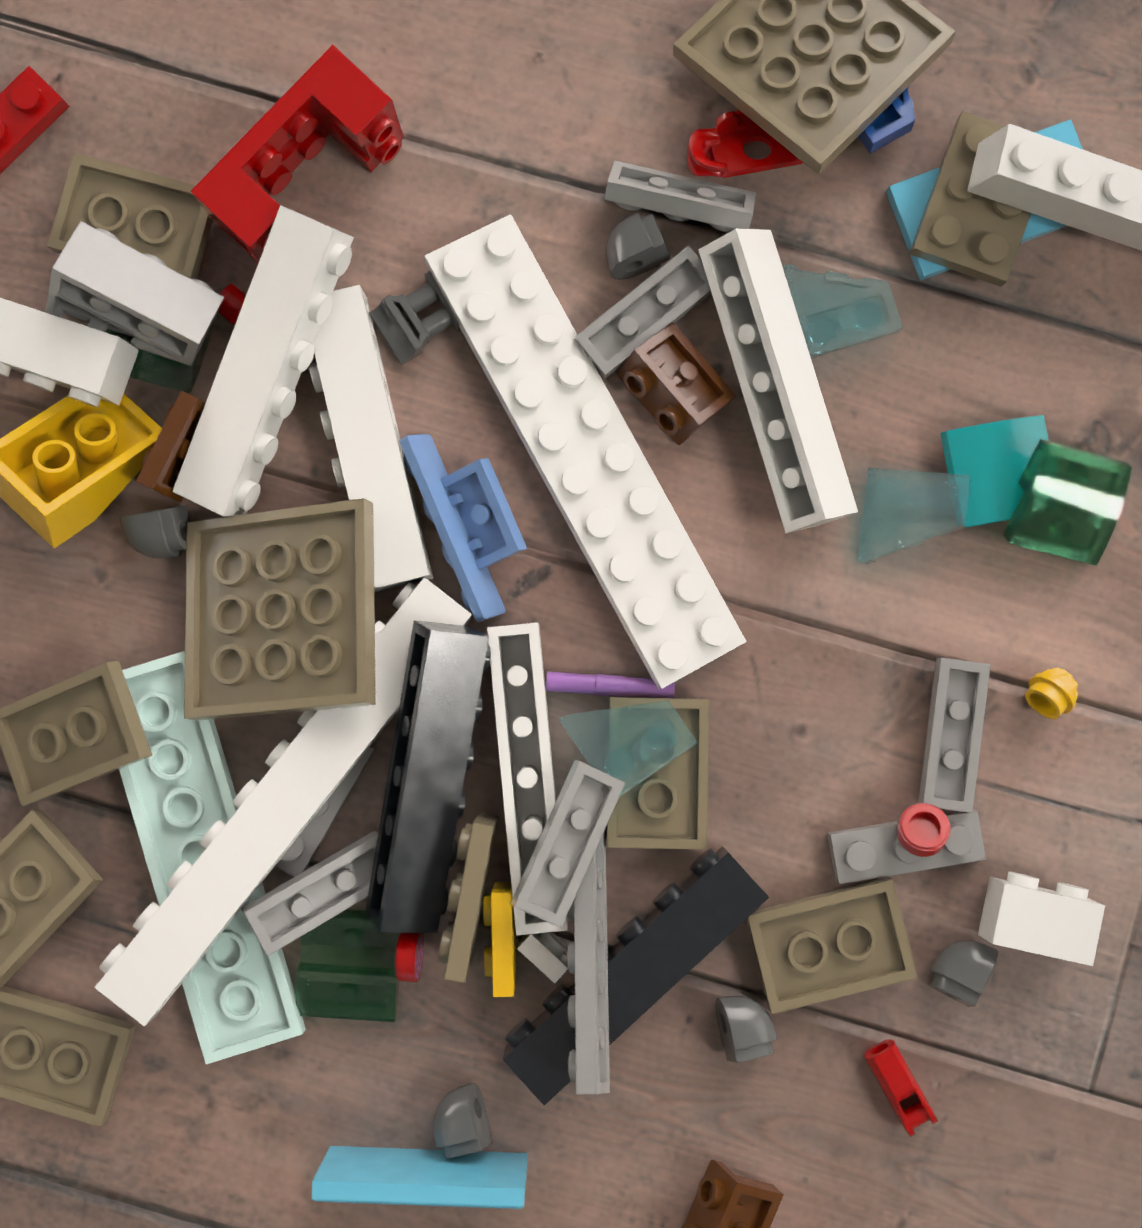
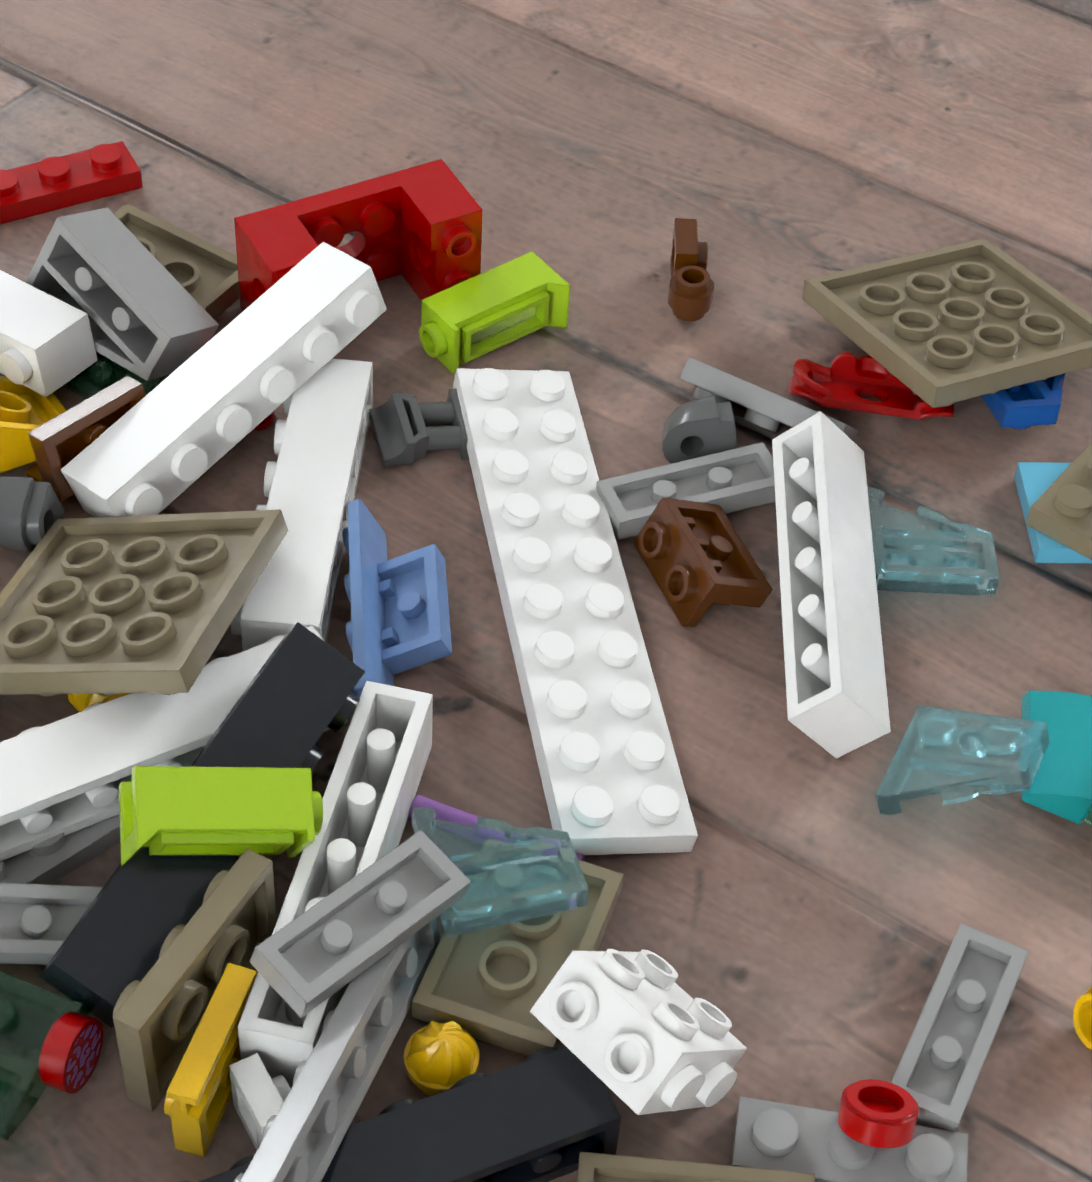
camera: 15 degrees right, 40 degrees down
(426, 169) = (493, 310): none -> lime window
(441, 802) = (218, 811): none -> lime window
(565, 42) = (690, 283): none -> reddish brown plate
(637, 872) = (440, 1056): none -> yellow plate
(764, 835) = (641, 1030): none -> white brick

